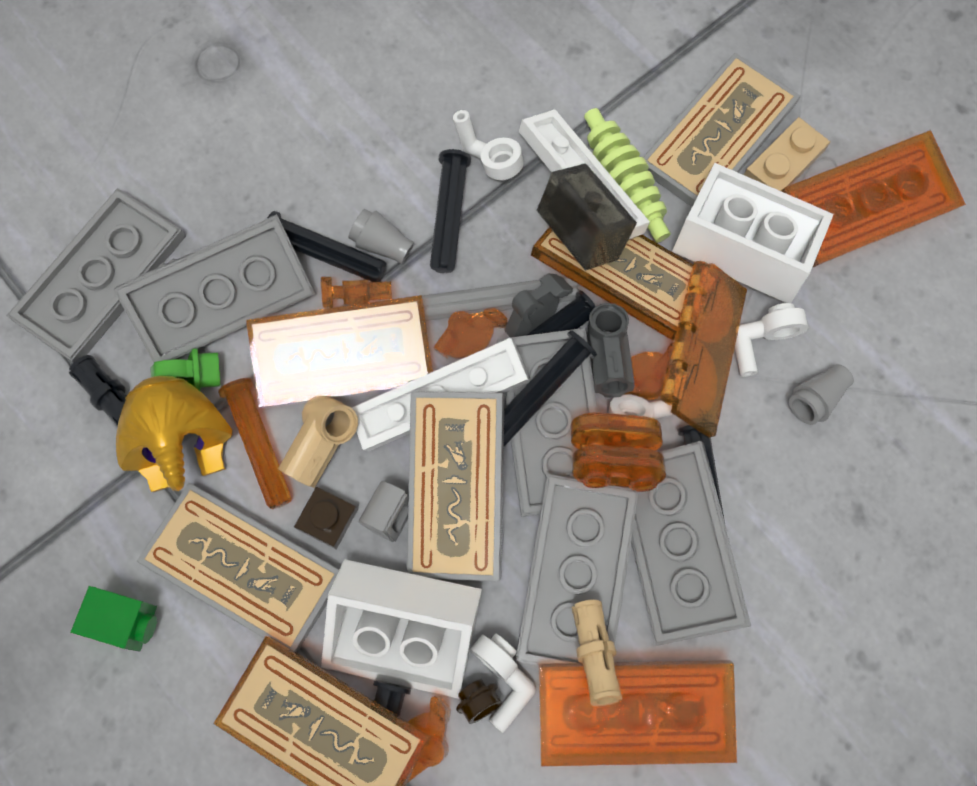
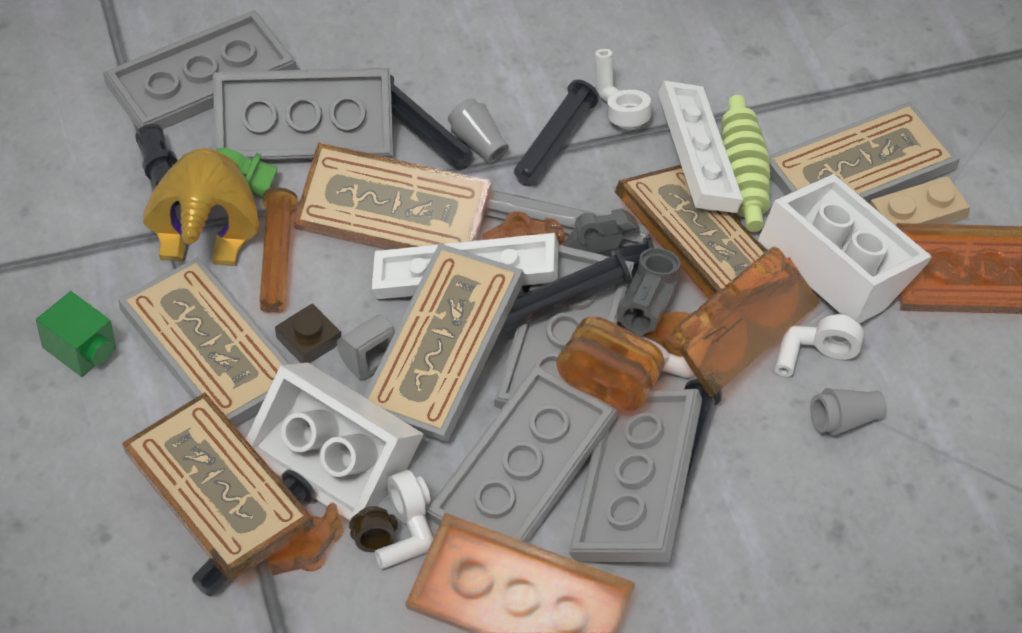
camera: 20 degrees right, 20 degrees down
(315, 442) = (330, 267): tan piece -> none
(353, 291) = (431, 157): clear orange piece -> none
(585, 216) = (678, 166): clear smoke brick -> none
(596, 653) = (504, 513): tan pin -> none

